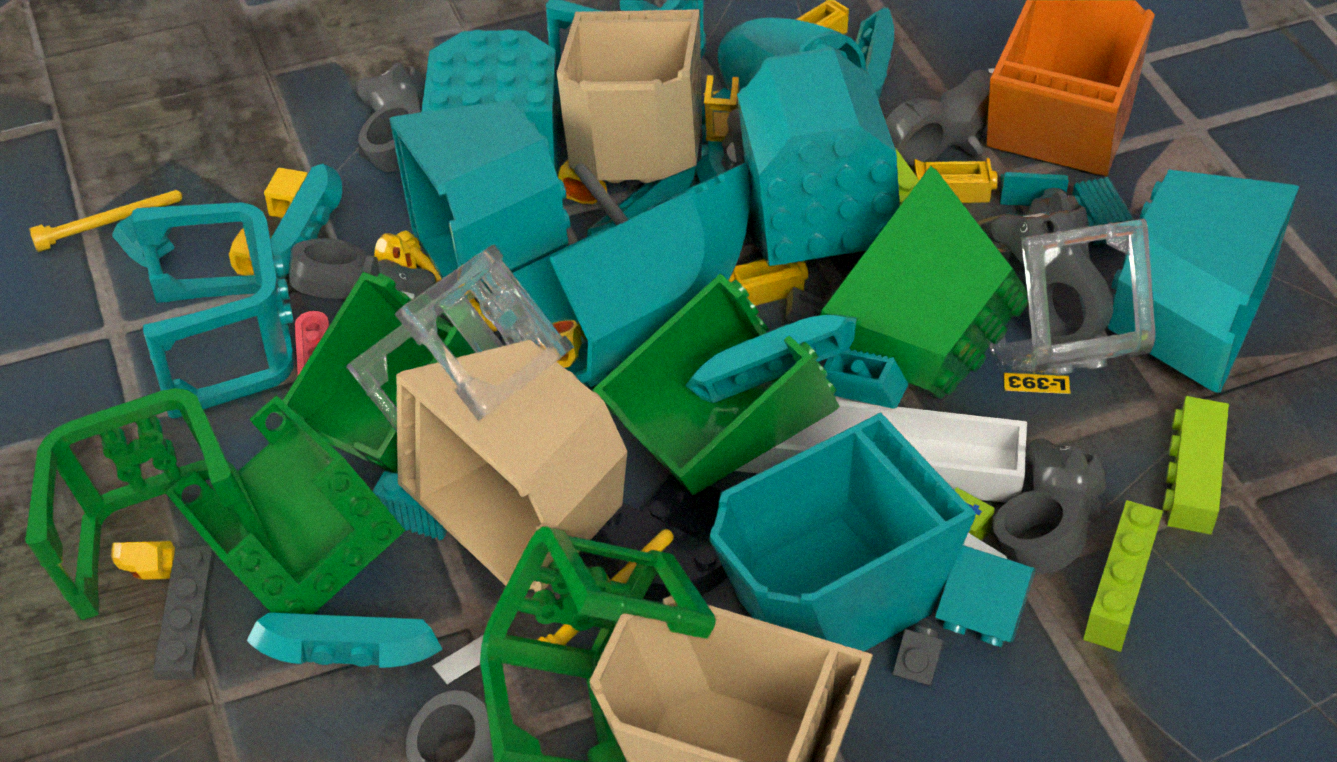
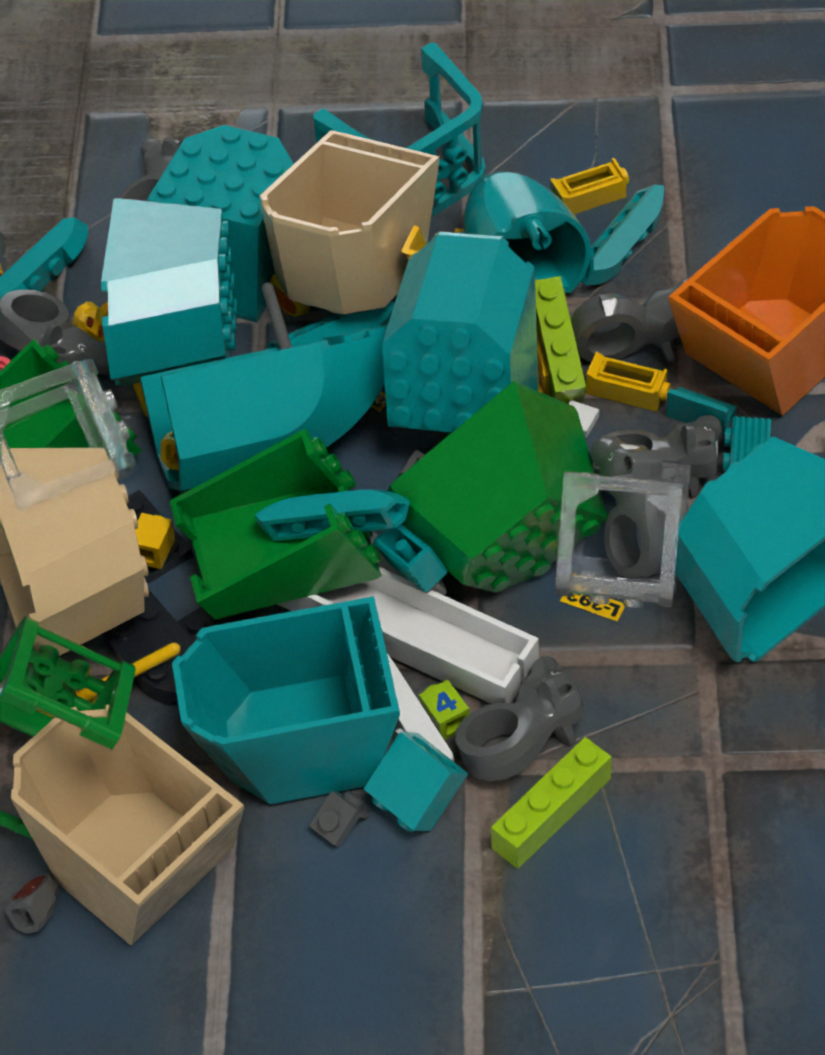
camera: 25 degrees right, 5 degrees up
(282, 190) = (32, 231): yellow brick -> none
(770, 282) = (379, 439): yellow window -> none
(1197, 465) = (682, 723): lime brick -> none

